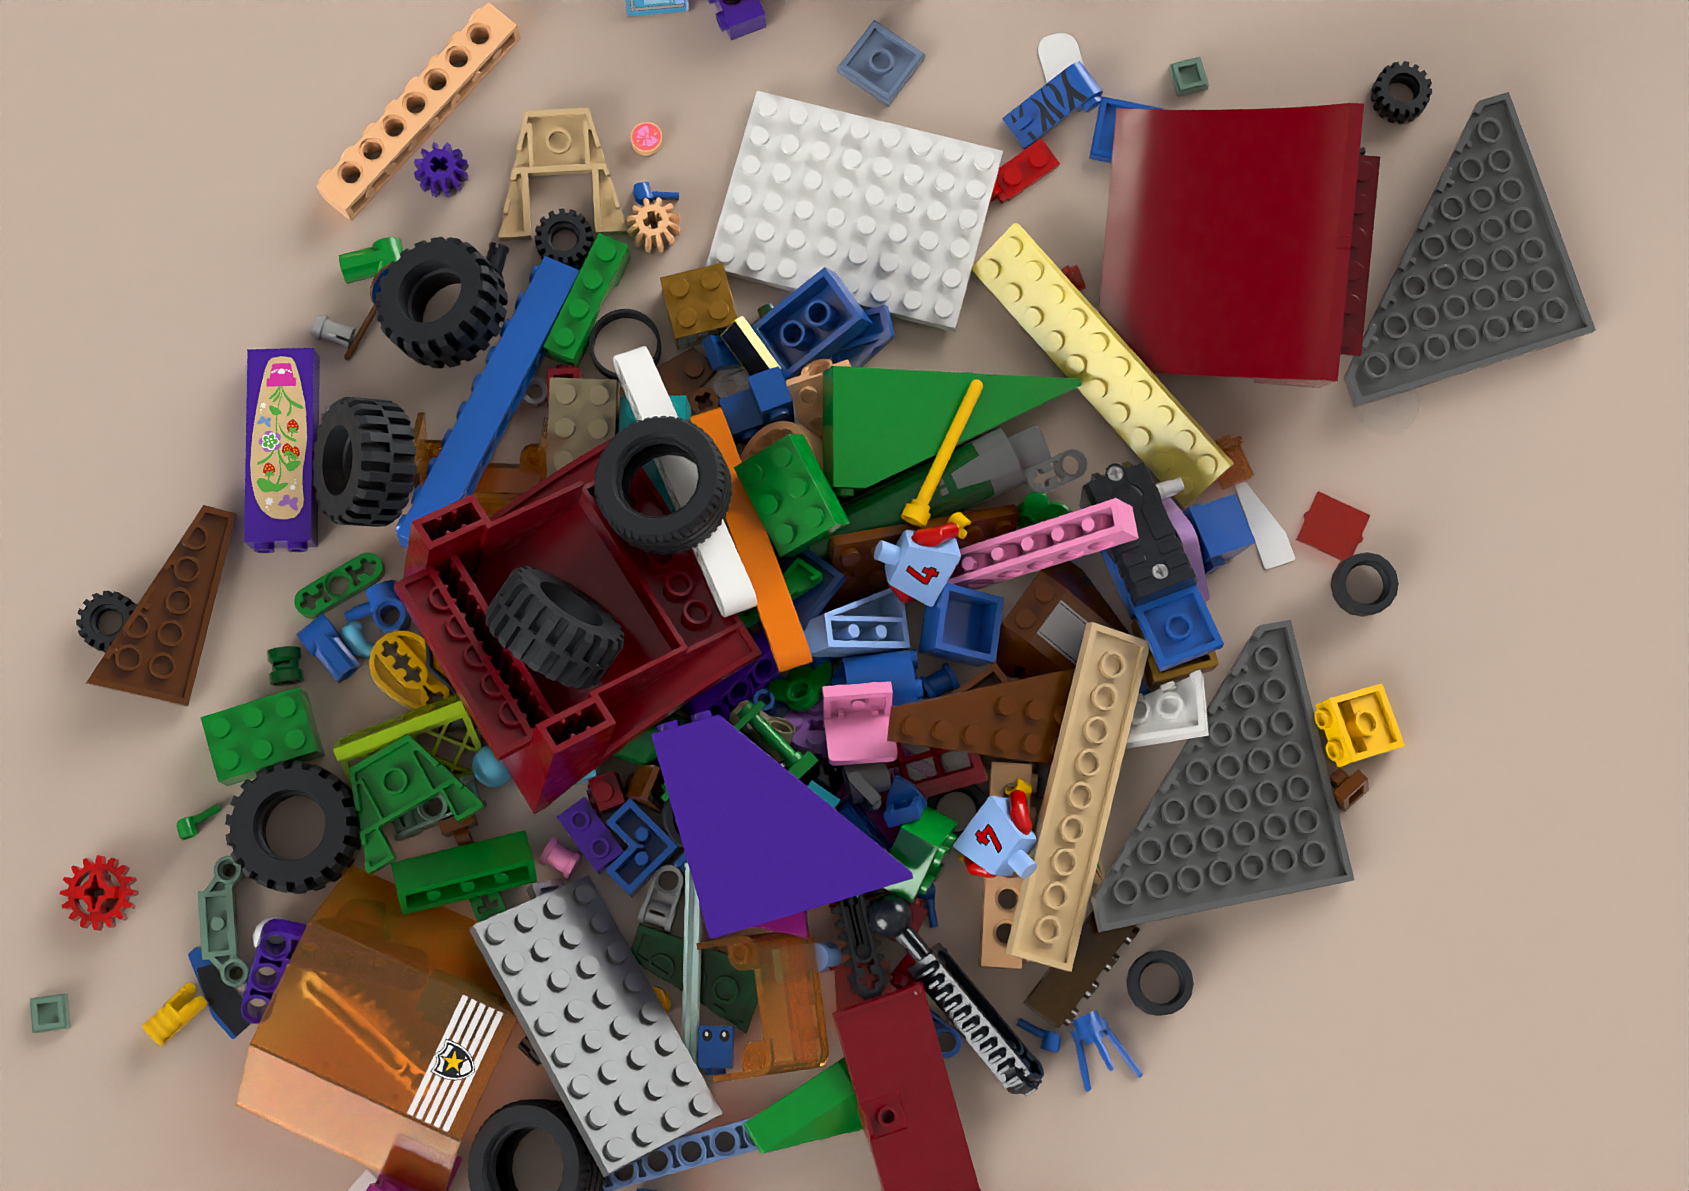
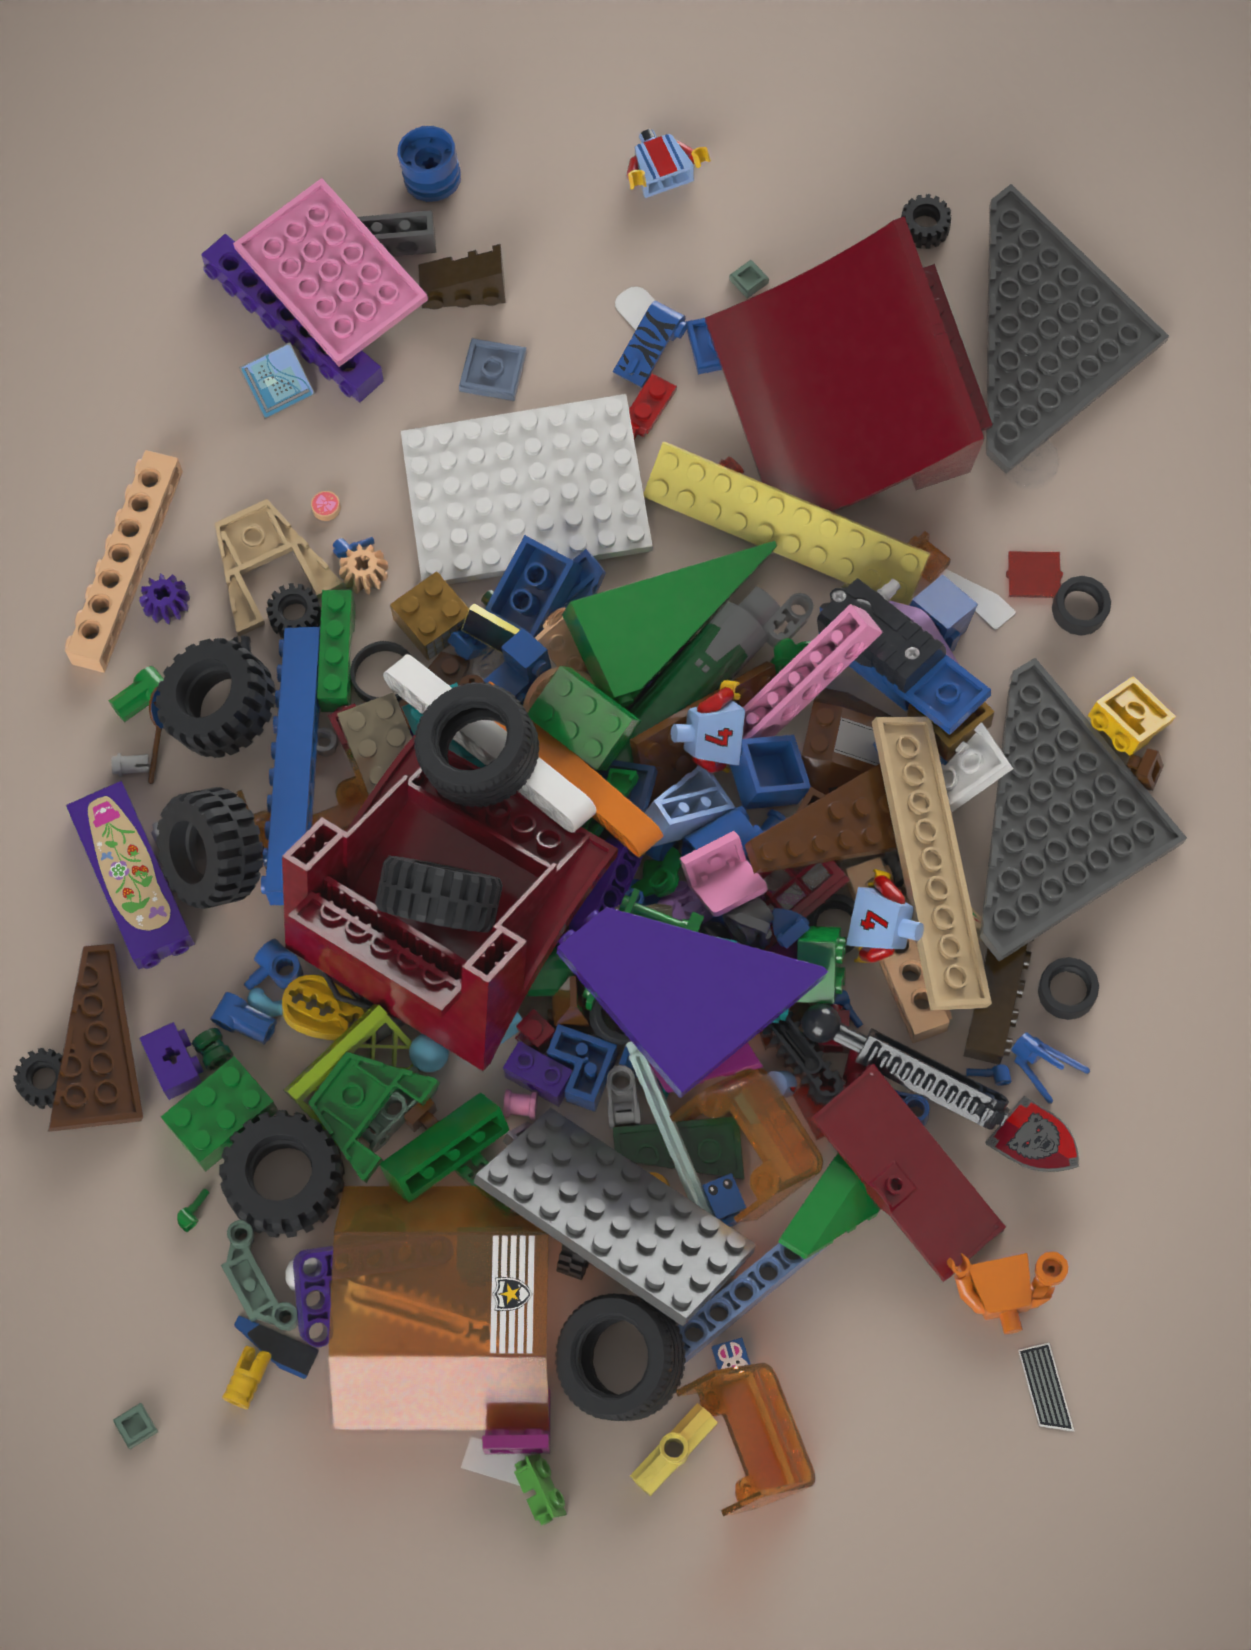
camera: 15 degrees left, 10 degrees down
(99, 907) = (123, 1309): red gear -> none
(231, 645) = (176, 1077): none -> dark purple brick
(325, 581) = (208, 978): green beam -> none
(918, 510) = (692, 692): yellow piece -> none
(1053, 1125) = (1035, 1139): none -> shield

